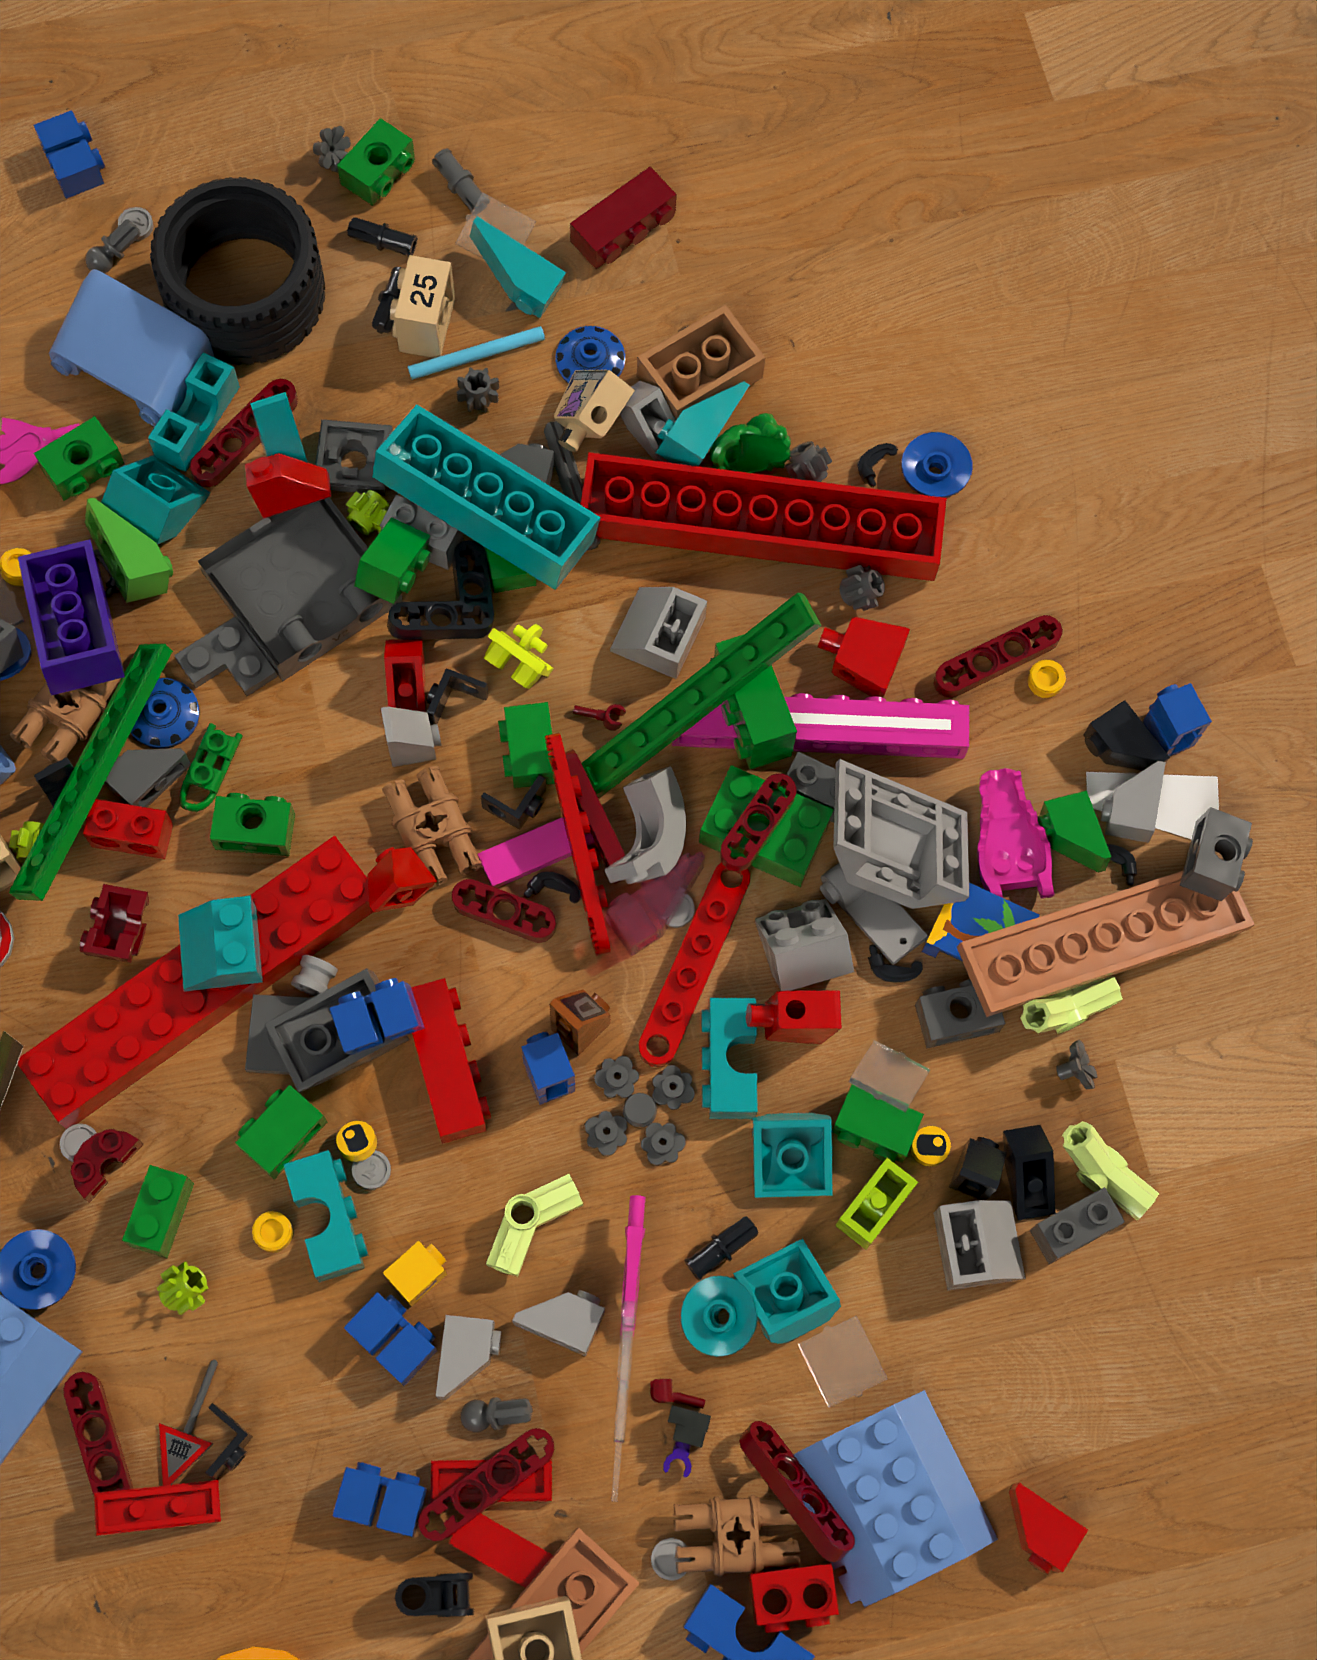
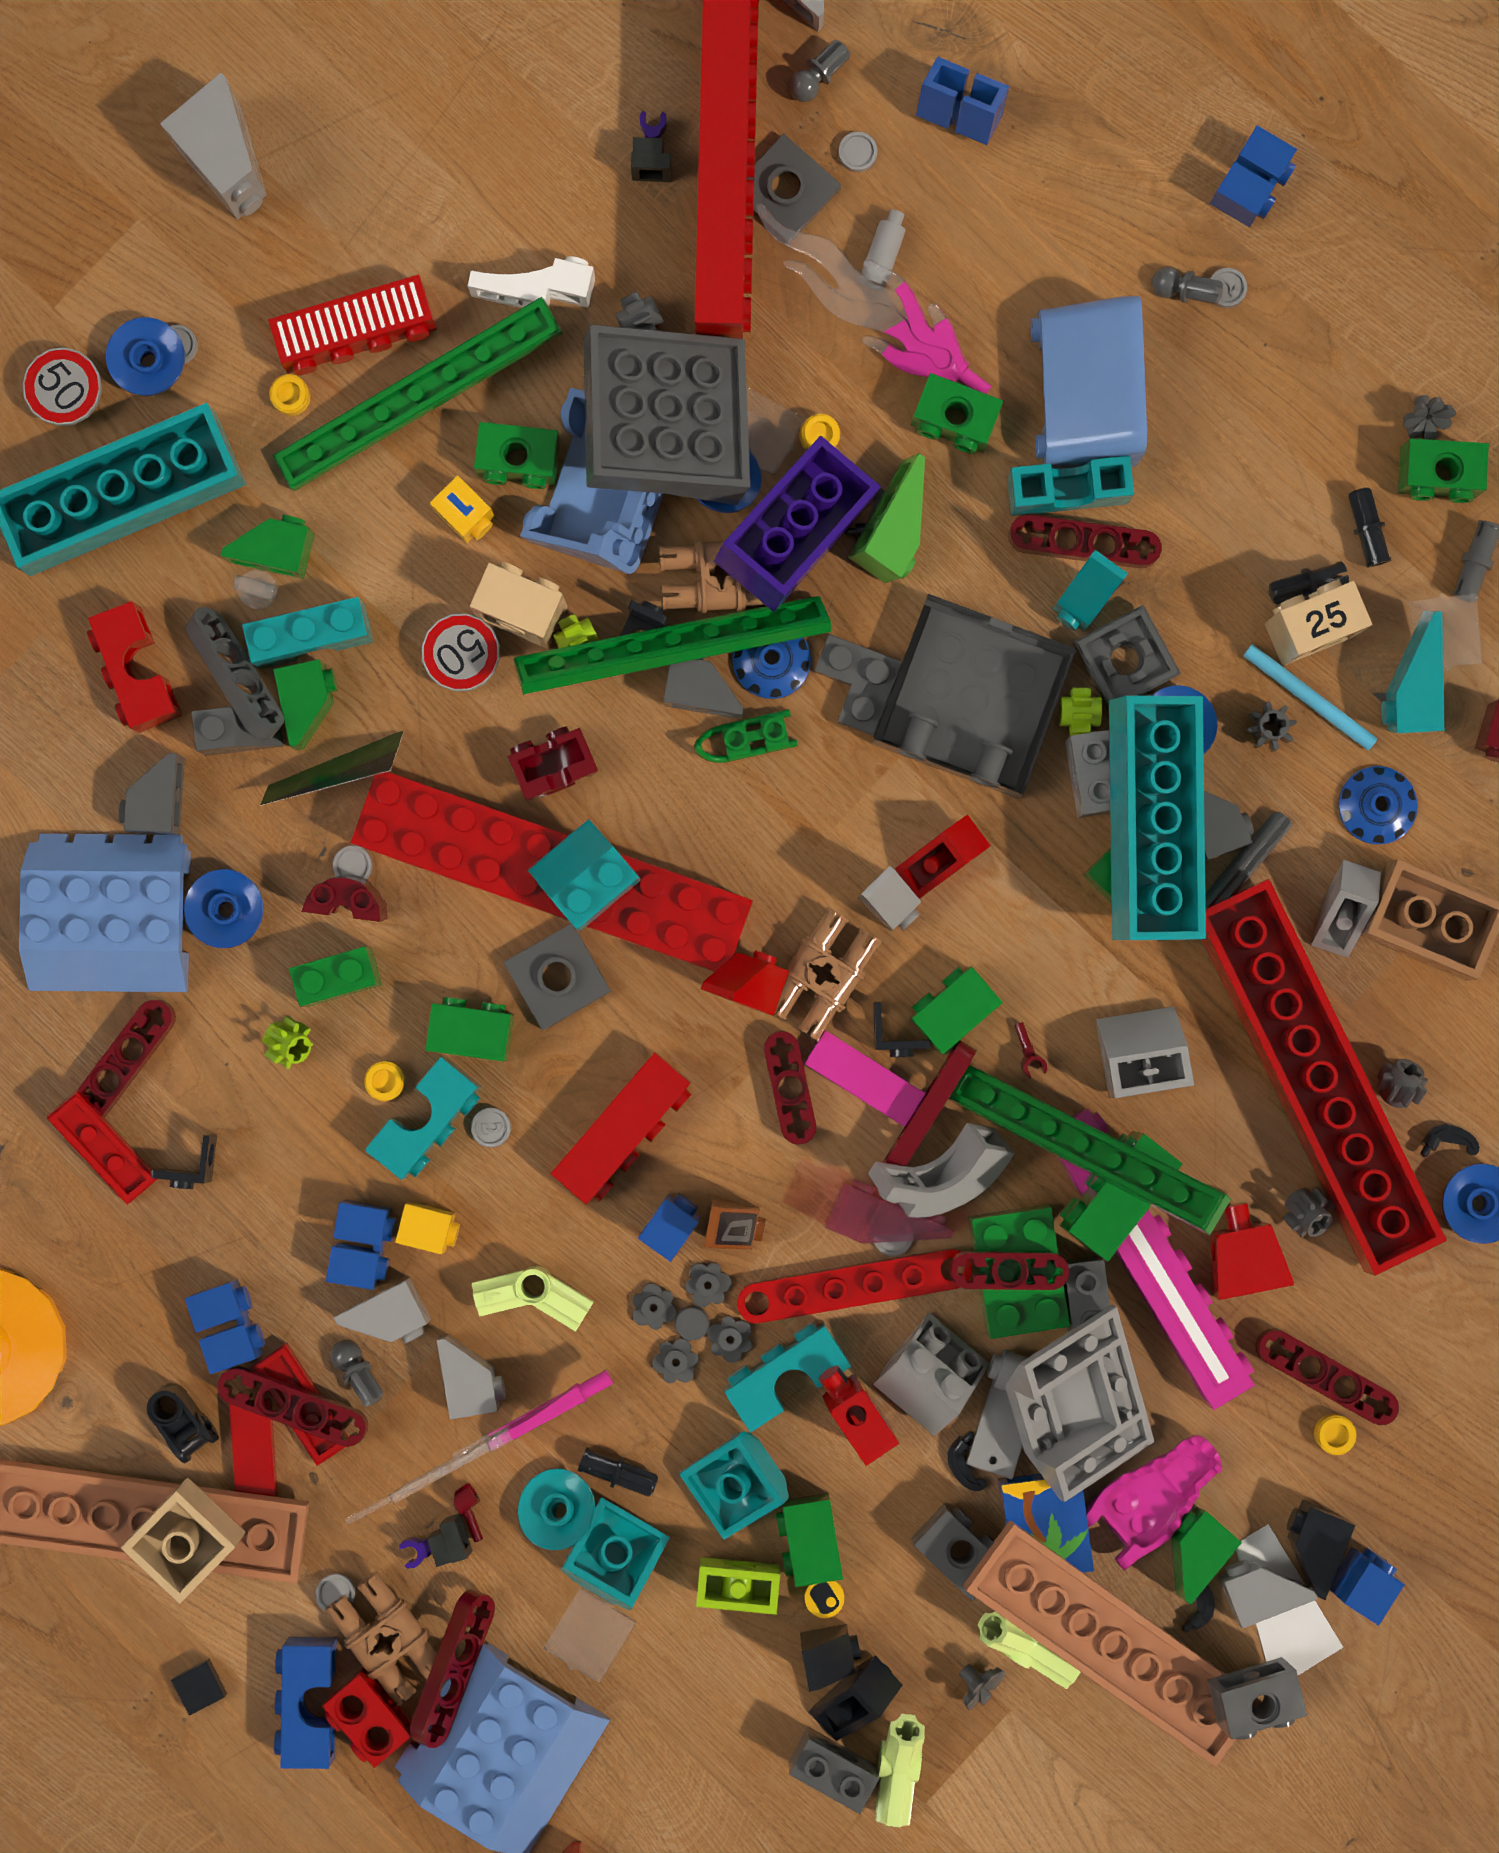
camera: 60 degrees right, 15 degrees up
(128, 829) = (644, 712): red brick -> none
(154, 497) = (964, 508): teal slope -> none
(181, 1448) = (163, 1129): piece -> none
(229, 212) = (1284, 373): black tyre -> none
(269, 838) = (703, 798): green brick -> none
(285, 483) = (1053, 623): red slope -> none
(310, 1039) = (584, 1022): dark grey slope -> none
(314, 975) = (621, 965): light grey wheel -> none
(356, 1141) = (505, 1100): yellow tile -> none
(357, 1021) = (593, 1045): blue piece -> none
(393, 561) = (1040, 775): green brick -> none
(451, 680) = (952, 895): black bracket -> none
(465, 604) = (1048, 863): black beam -> none
(531, 665) = (1034, 959): neon yellow hips -> none
(553, 881) = (846, 1113): black piece -> none
(584, 859) = (902, 1107): red plate -> none
(590, 406) = (1320, 845): tan torso -> none
(698, 427) = (1356, 963): teal slope -> none
(752, 446) = (1380, 1020): green hair -> none
(889, 1076) = (860, 1525): clear piece -> none
(978, 1243) = (761, 1694): light grey slope -> none

